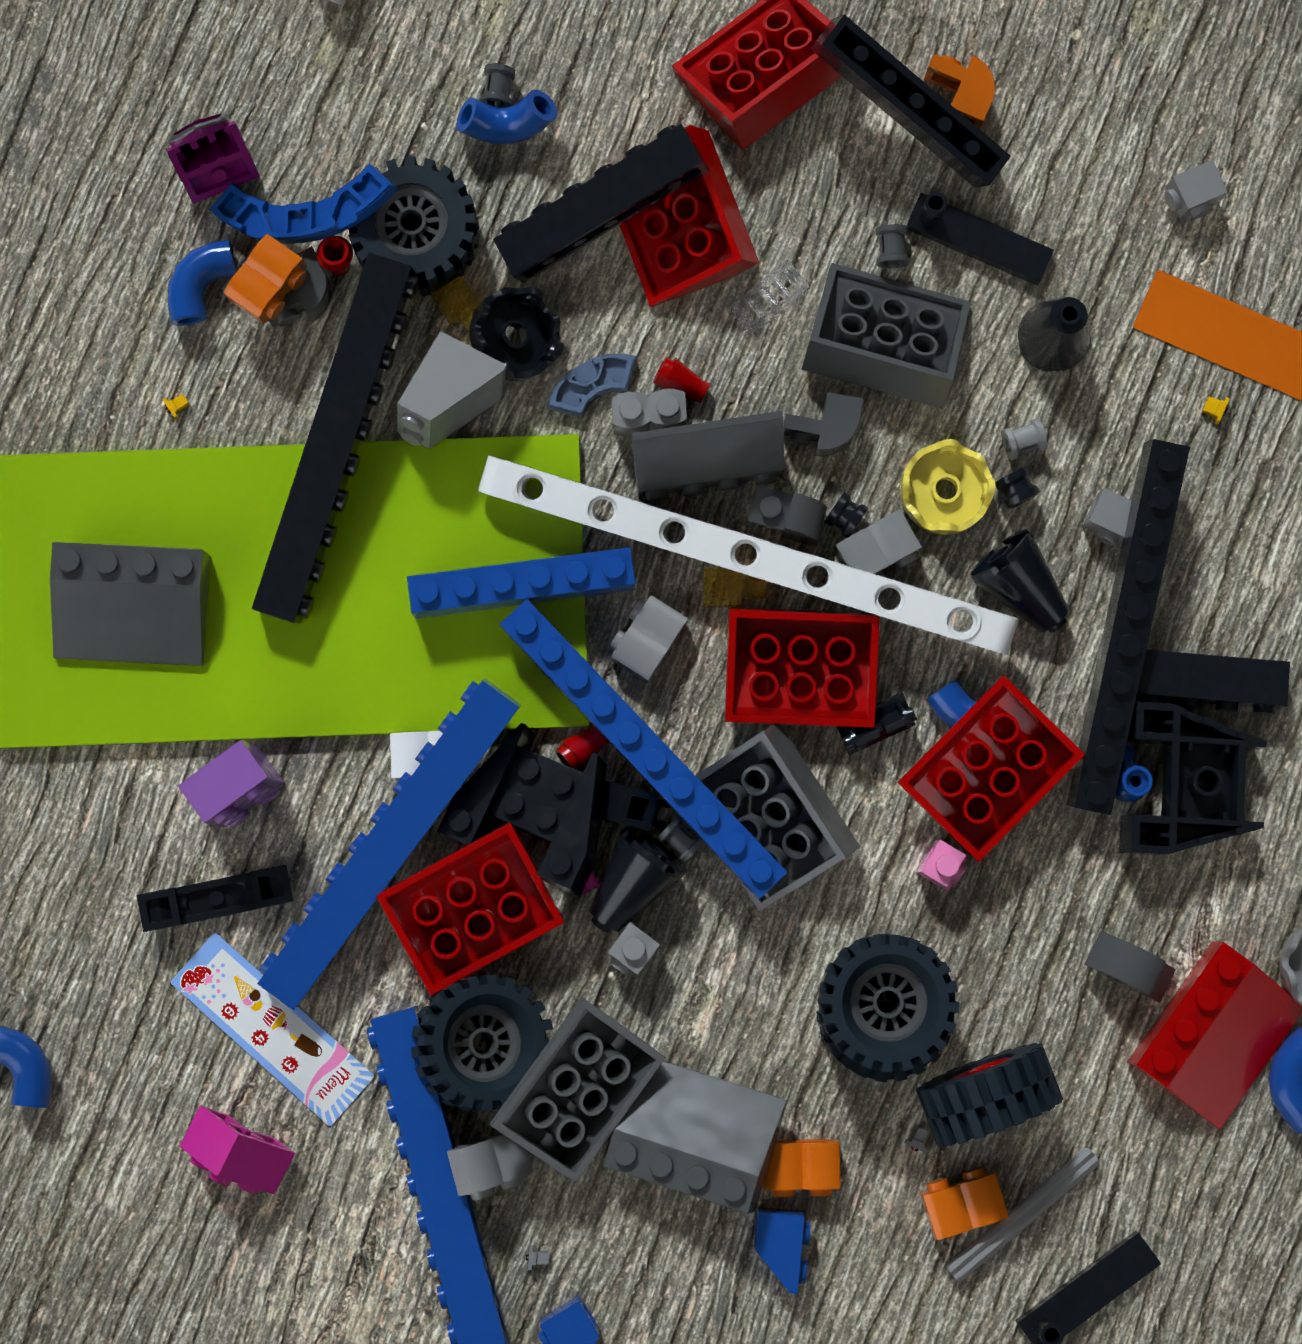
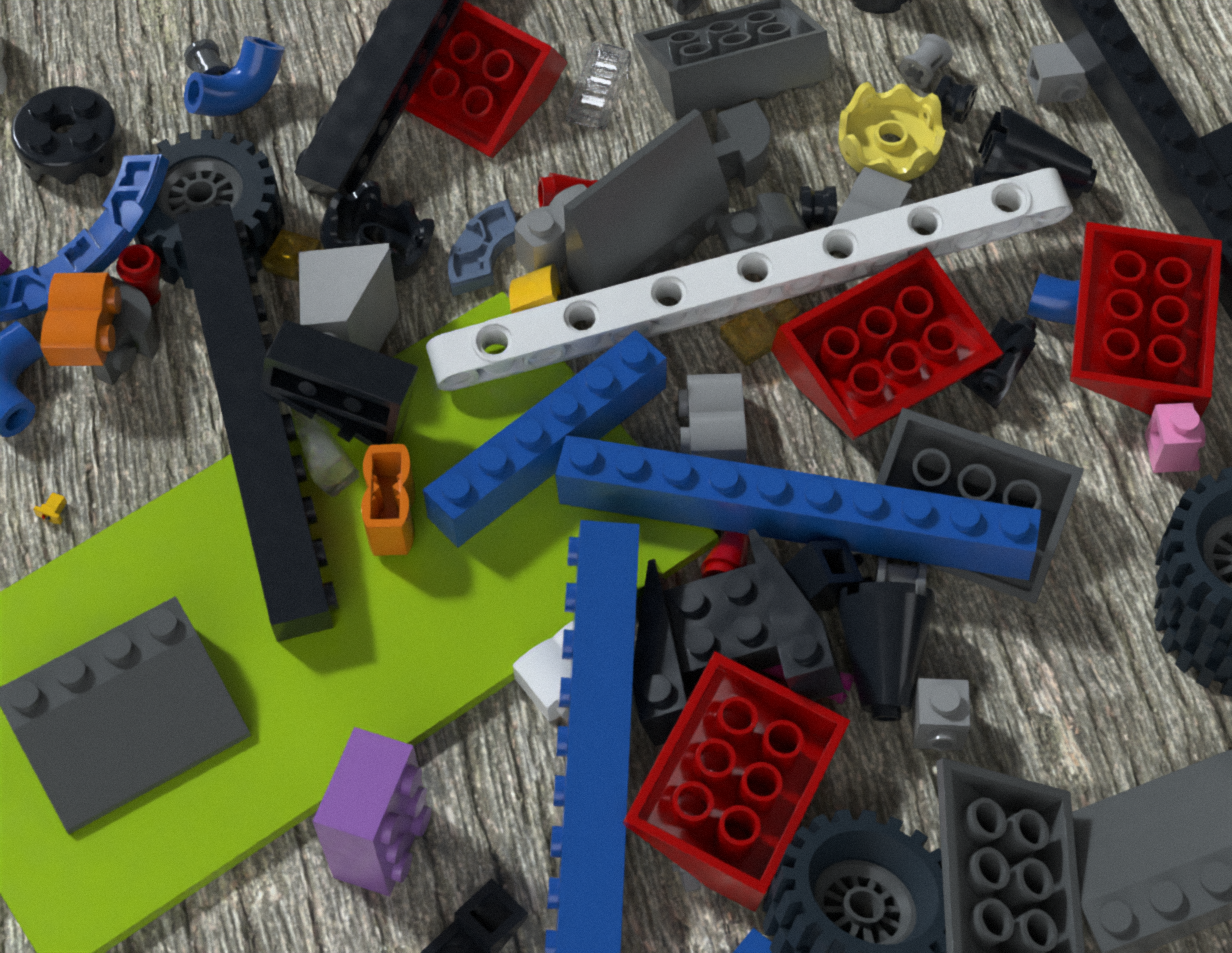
camera: 30 degrees left, 25 degrees down
(360, 110) = (70, 154): none -> black plate
(369, 490) = (324, 456): none -> clear slope
(391, 554) = (388, 499): none -> orange brick
(399, 460) = (340, 382): none -> black wedge
(593, 456) = (534, 289): none -> yellow slope

